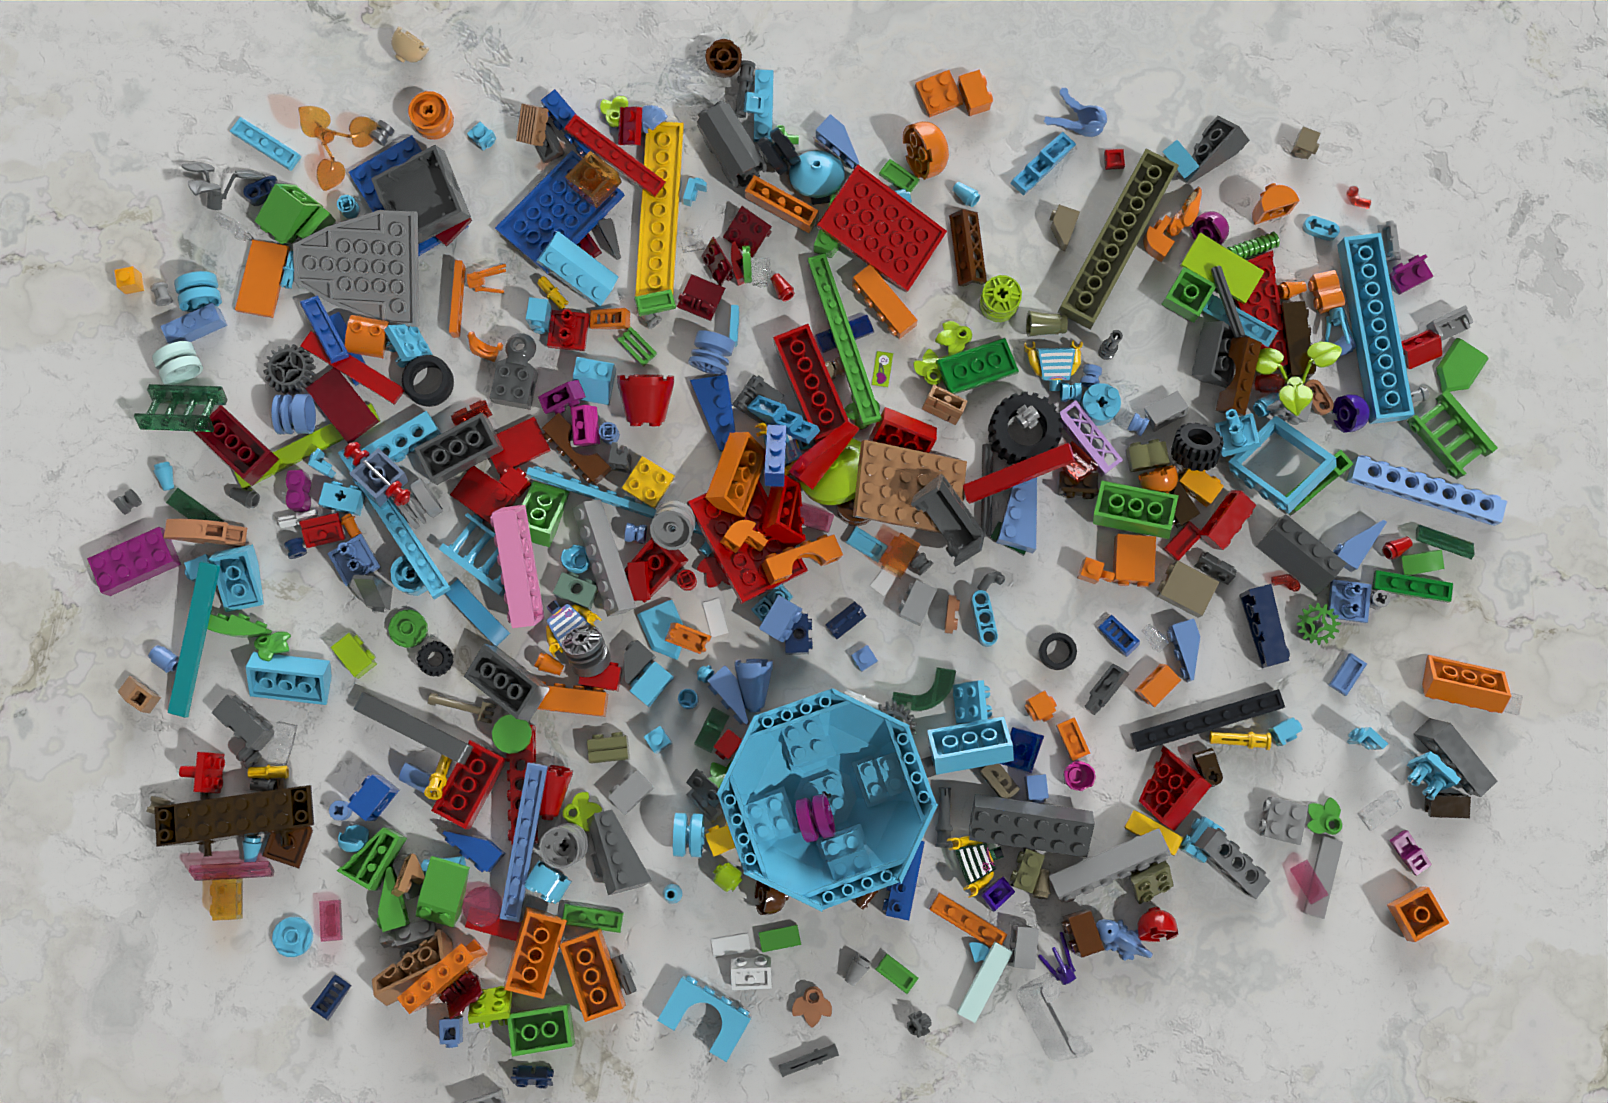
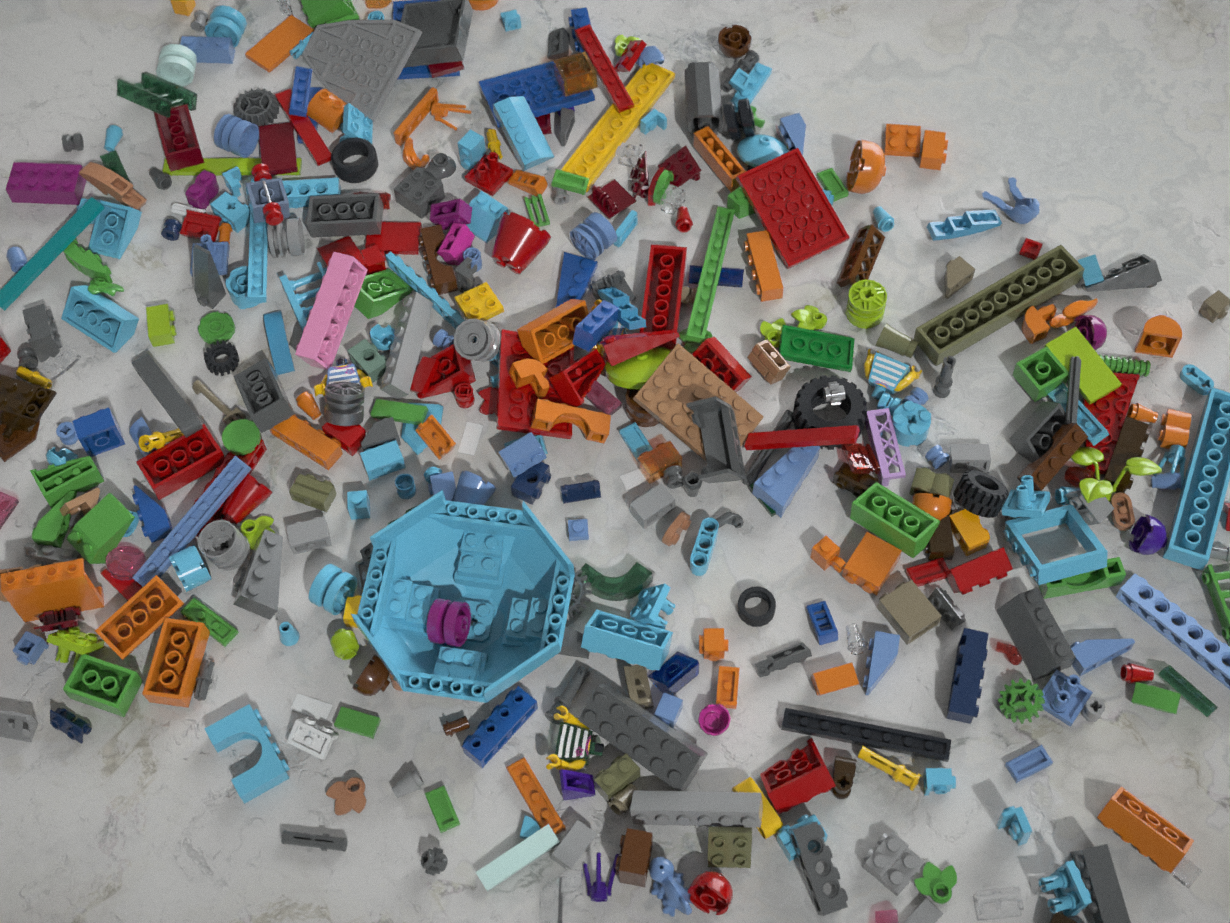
camera: 30 degrees right, 20 degrees down
(532, 125) = (553, 24): medium nougat brick -> none
(637, 628) = (399, 411): none -> bright green tile
(882, 369) = (732, 317): lime sticker -> none
(947, 561) = (692, 484): none -> dark grey cone
(1412, 586) = (1136, 716): green plate -> none

